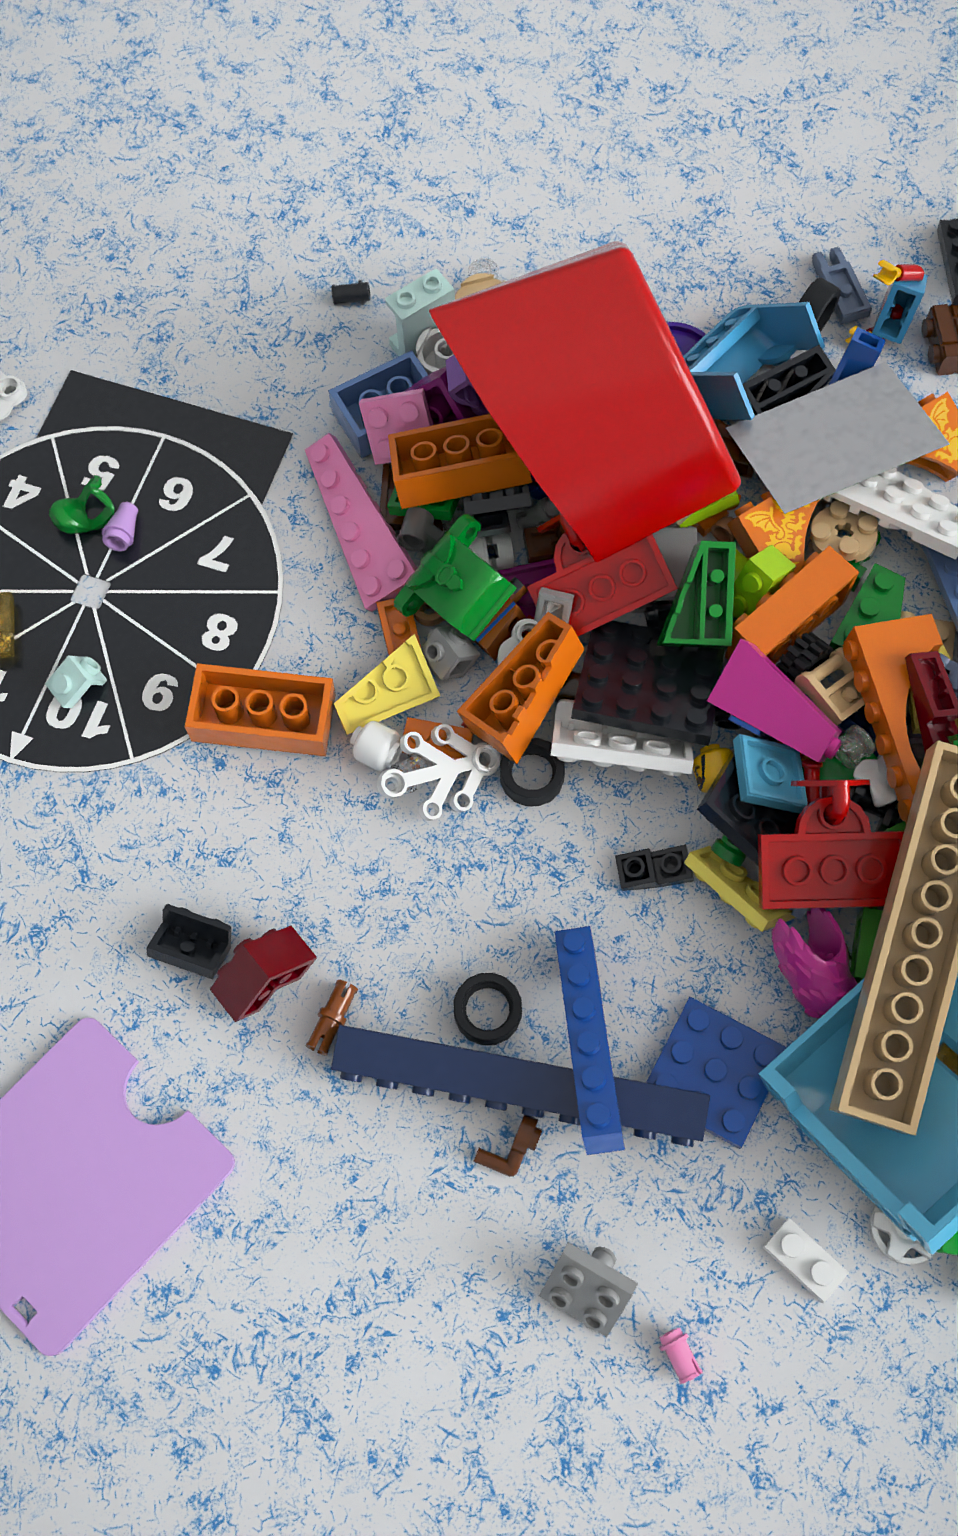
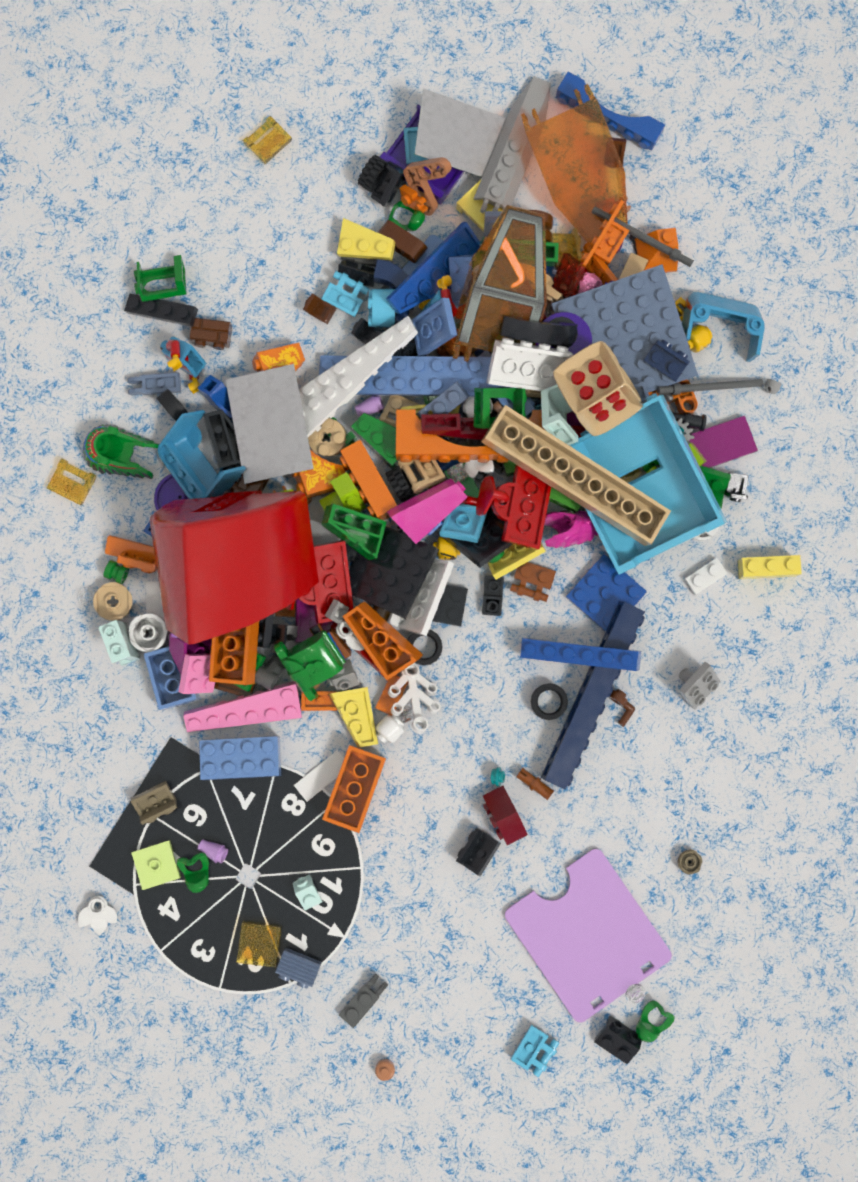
camera: 75 degrees left, 15 degrees up
(86, 453) = (156, 865): none -> yellowish green plate
(183, 428) = (154, 803): none -> dark tan bracket
(226, 1351) = (694, 866): none -> dark tan plate
(266, 655) = (320, 776): none -> white sticker
(278, 530) = (240, 758): none -> medium blue brick
(331, 947) = (497, 776): none -> teal plate
(351, 293) = (81, 681): black pin -> none
(615, 796) = (451, 606): none -> black plate
(642, 211) = (68, 488): none -> clear yellow plate
(680, 1355) = (736, 648): bright pink pin -> none
(711, 932) = (534, 575): none -> dark orange plate
(718, 243) = (111, 450): none -> green piece
(864, 1388) = (769, 567): none -> light yellow brick
(920, 595) = (370, 406): none -> lavender cone

